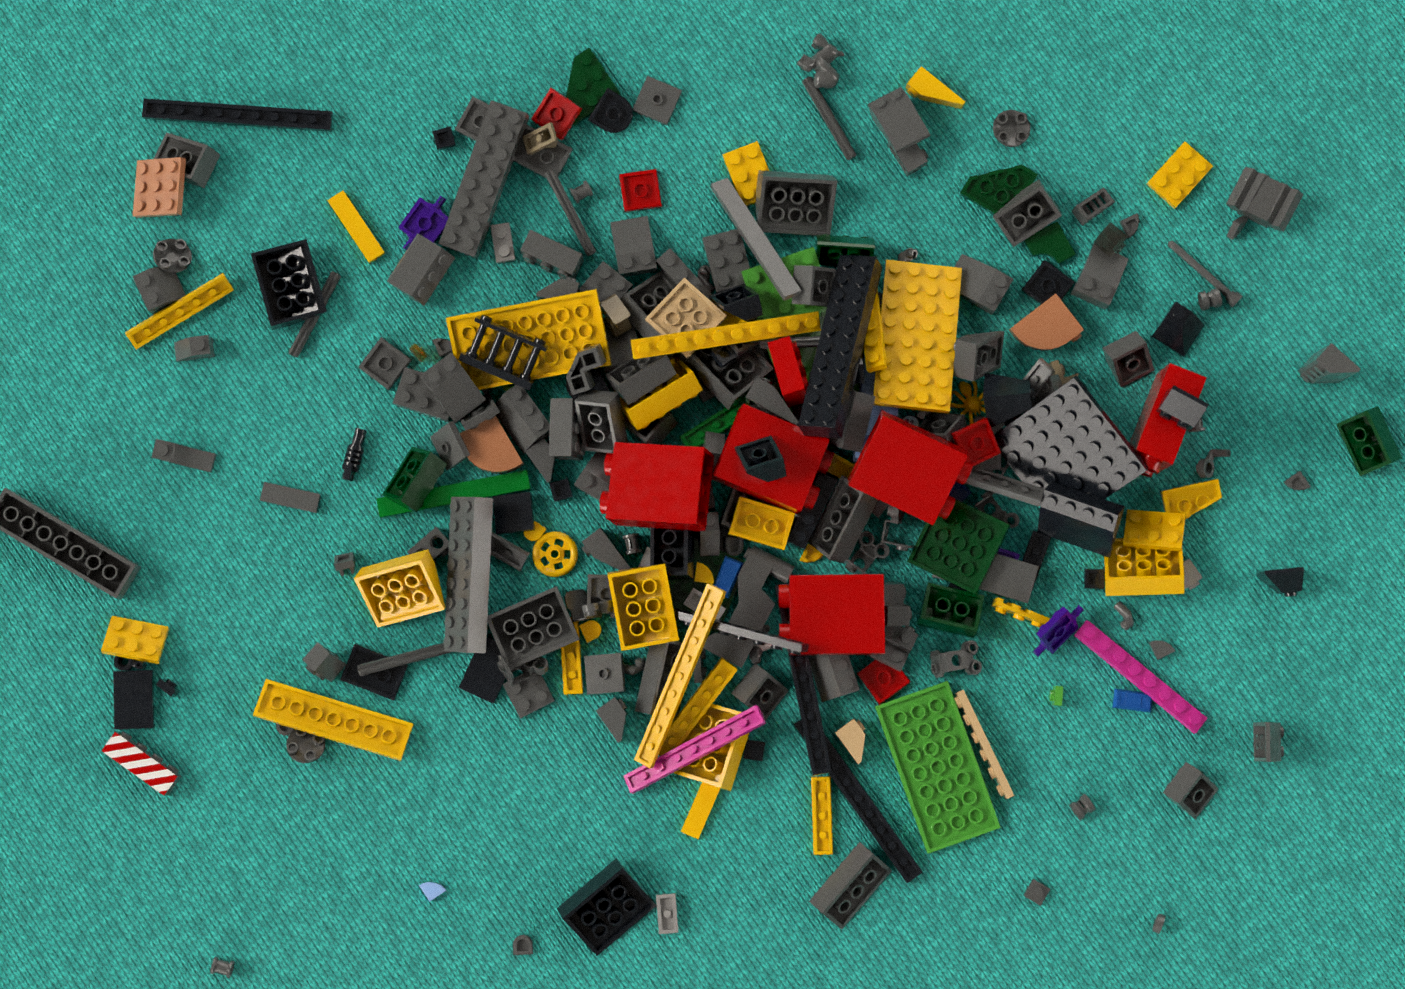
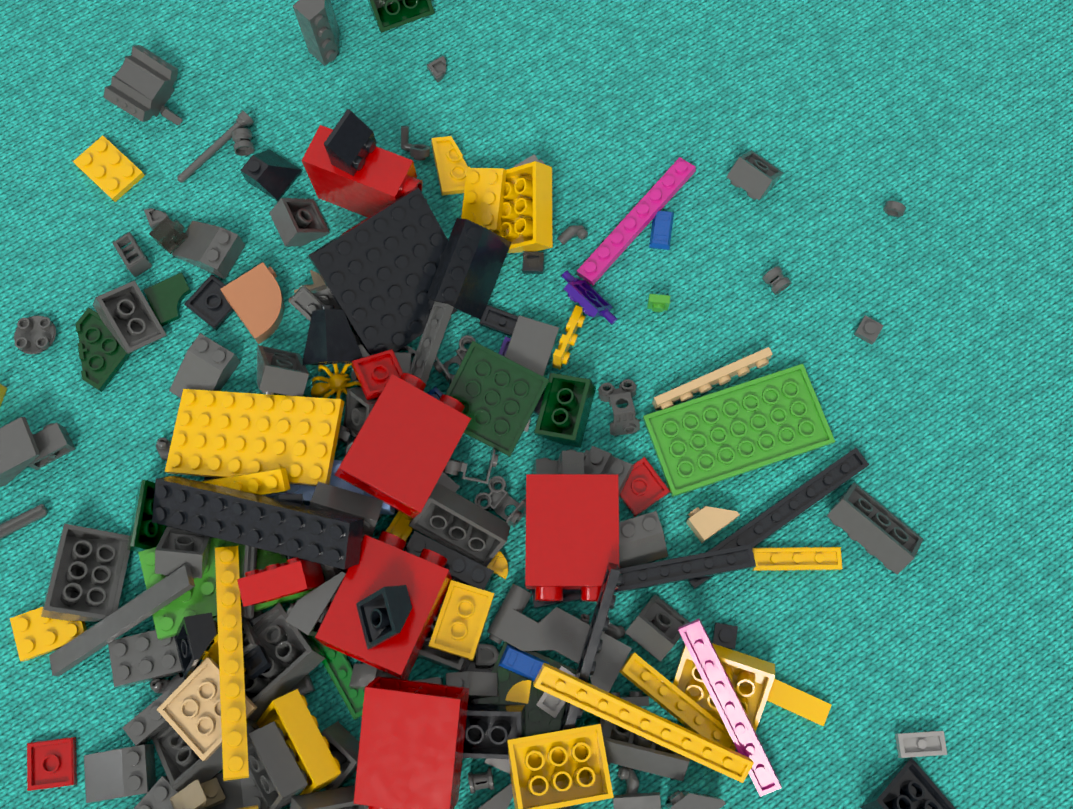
camera: 90 degrees left, 10 degrees down
(1161, 648) = (607, 200): dark grey tile -> none
(1268, 741) = (704, 99): dark grey slope -> none
(1283, 580) = (538, 79): black slope -> none

